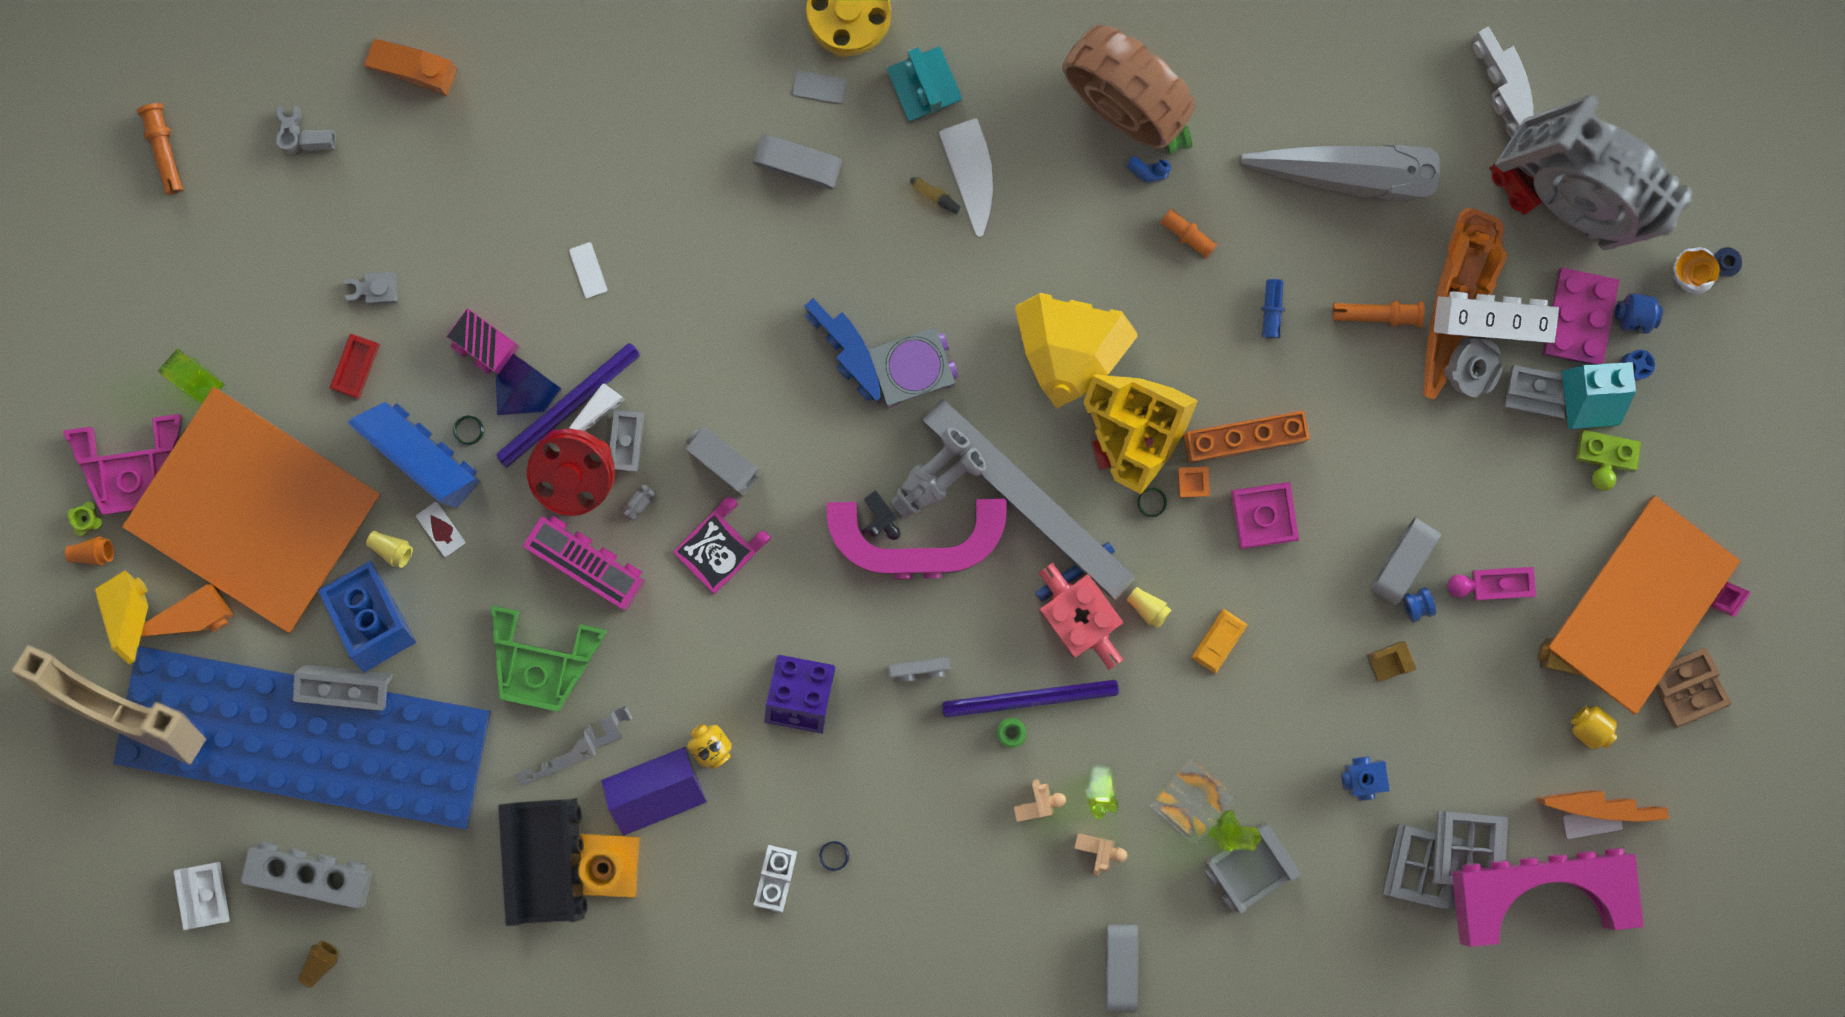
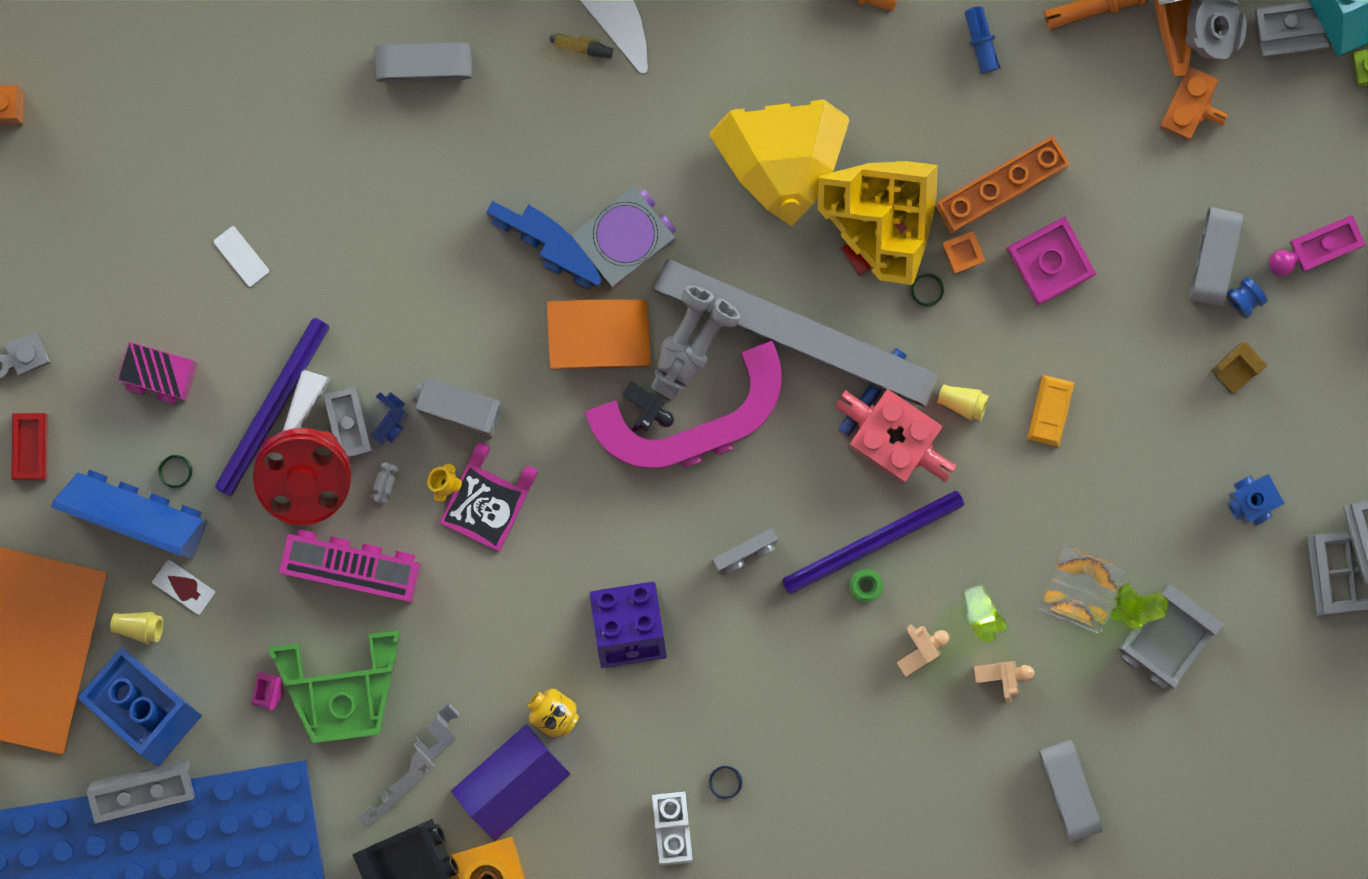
camera: 20 degrees left, 0 degrees up
(478, 641) = (267, 691): none -> dark pink slope
(523, 389) = (218, 406): clear blue slope -> none
(660, 456) = (390, 426): none -> clear blue bracket
(688, 519) = (442, 475): none -> yellow plate
(862, 441) = (598, 334): none -> orange slope
(1431, 426) = (1192, 105): none -> orange plate

